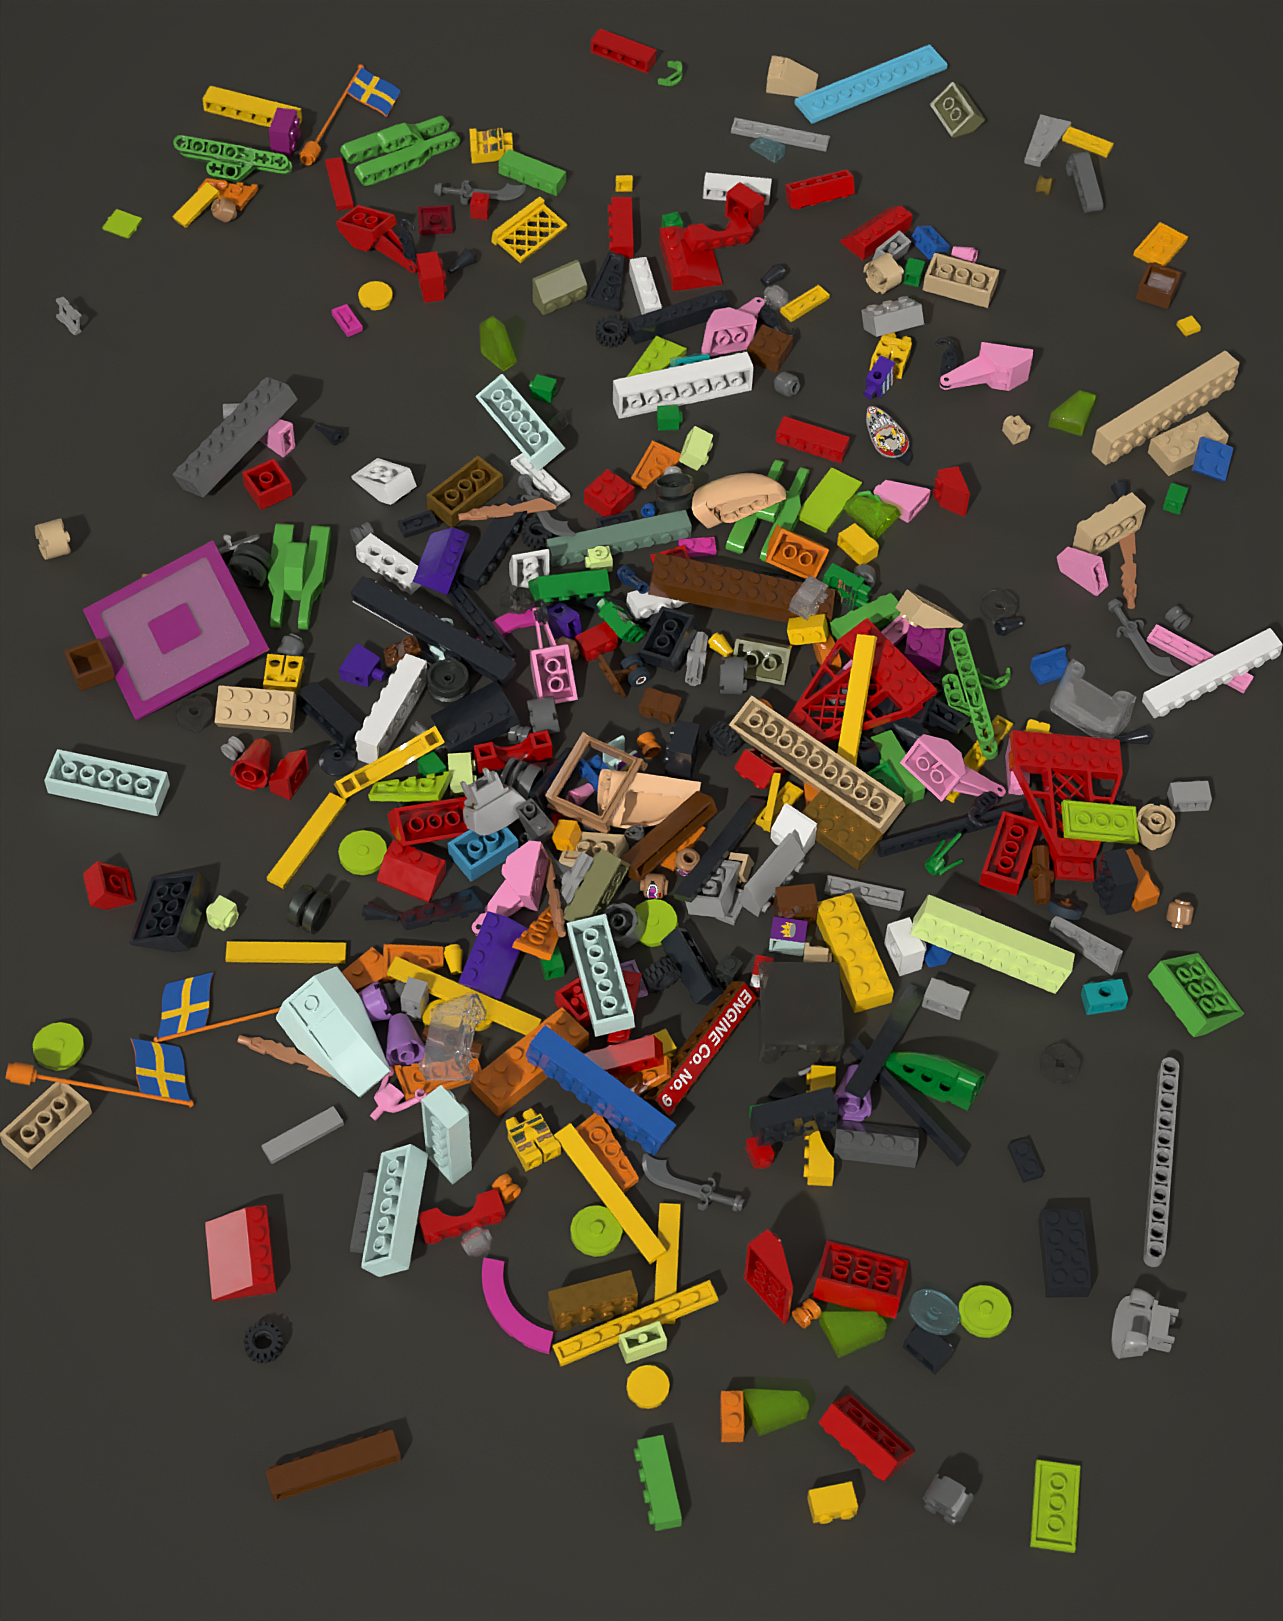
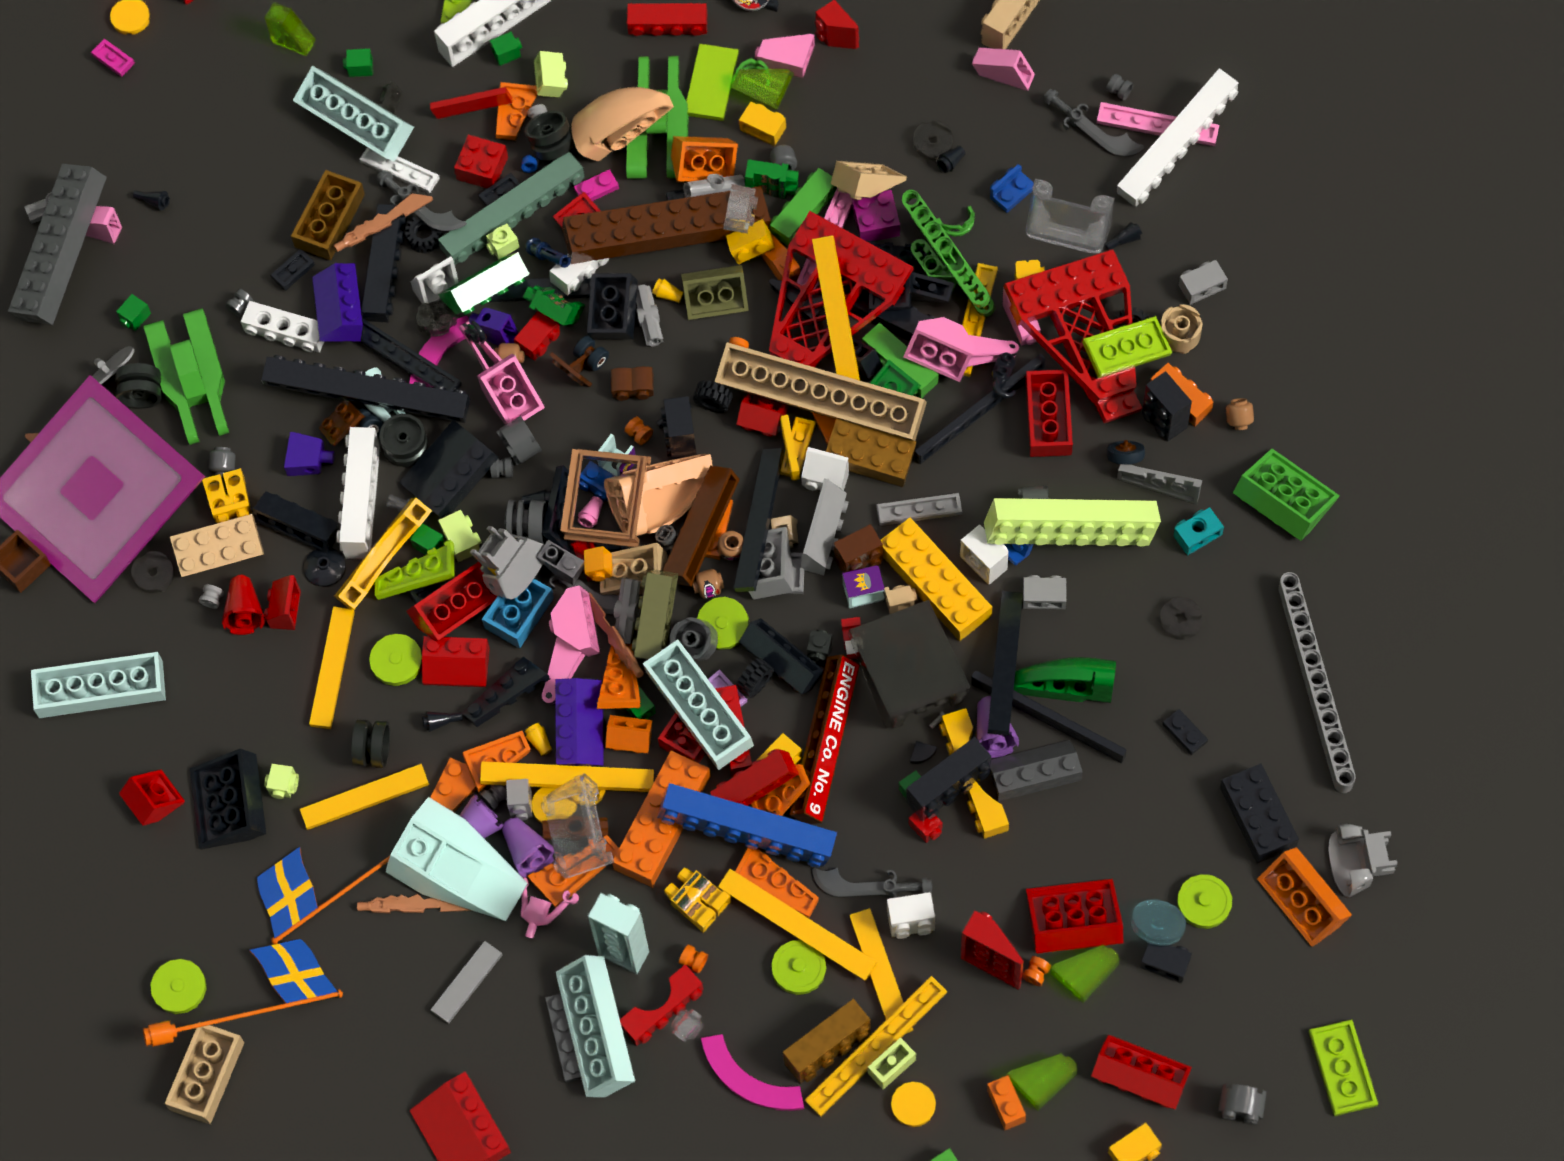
camera: 15 degrees left, 10 degrees up
(267, 484) = (113, 283): red brick -> none
(273, 511) = (133, 312): none -> green brick
(385, 480) = (236, 232): white slope -> none
(532, 982) = (628, 734): none -> orange brick
(534, 748) = (487, 504): red arch -> none
(621, 447) = (471, 102): none -> red tile
(713, 1221) = (911, 915): none -> white brick
(732, 675) = (693, 322): dark grey brick -> none
(795, 573) = (713, 184): none -> light grey piece
(936, 863) = (978, 452): green plant -> none
(1041, 874) = (1088, 424): reddish brown piece -> none
(1077, 1340) = (1304, 896): none -> orange slope
(1129, 569) = (1049, 48): nougat sword -> none

